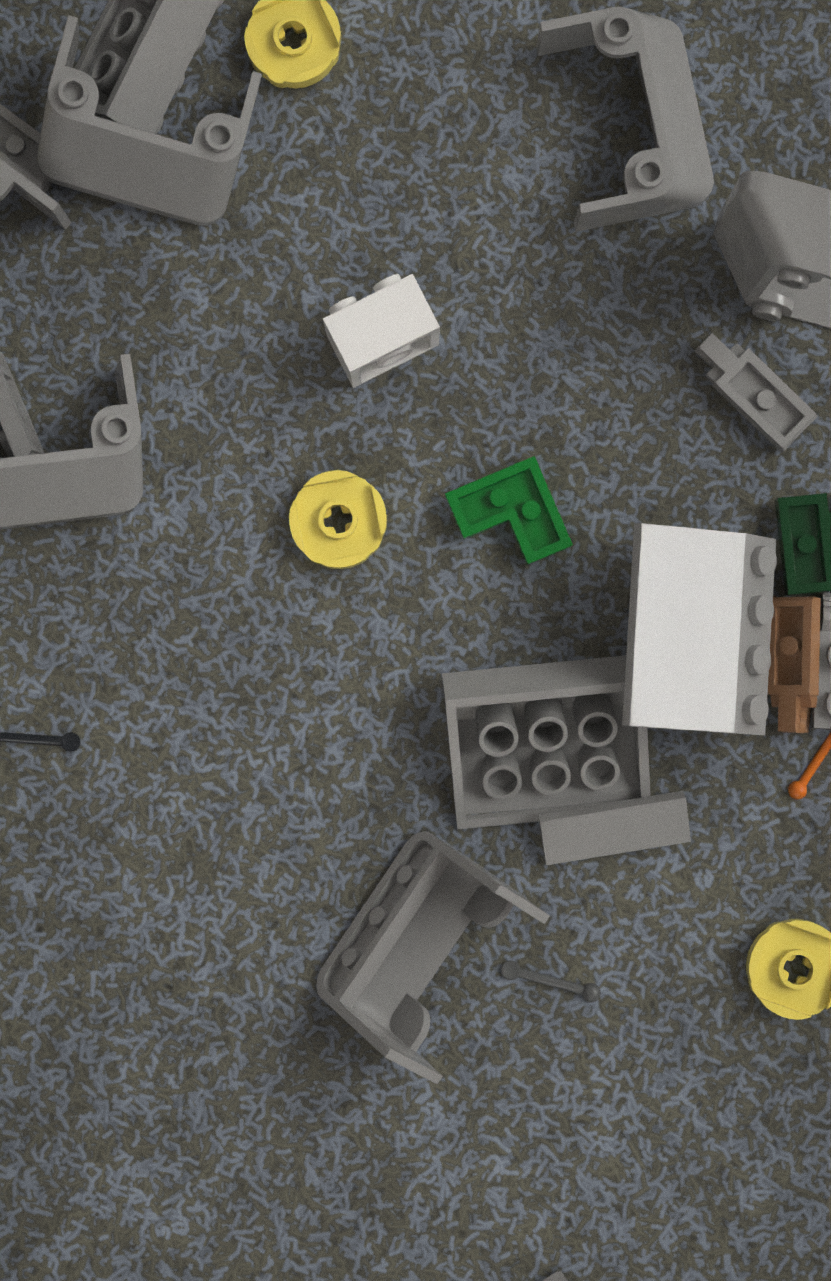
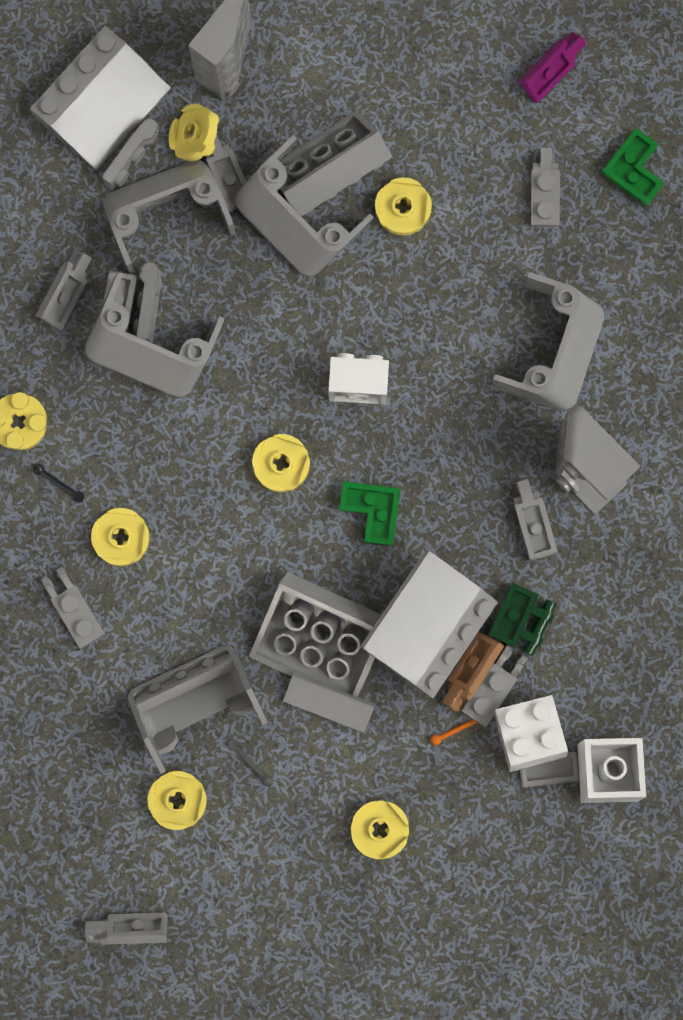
camera: 30 degrees right, 5 degrees down
(141, 755) = (110, 524): none -> light yellow plate
(163, 912) = (74, 611): none -> light grey hinge
(466, 1125) = (163, 810): none -> light yellow plate

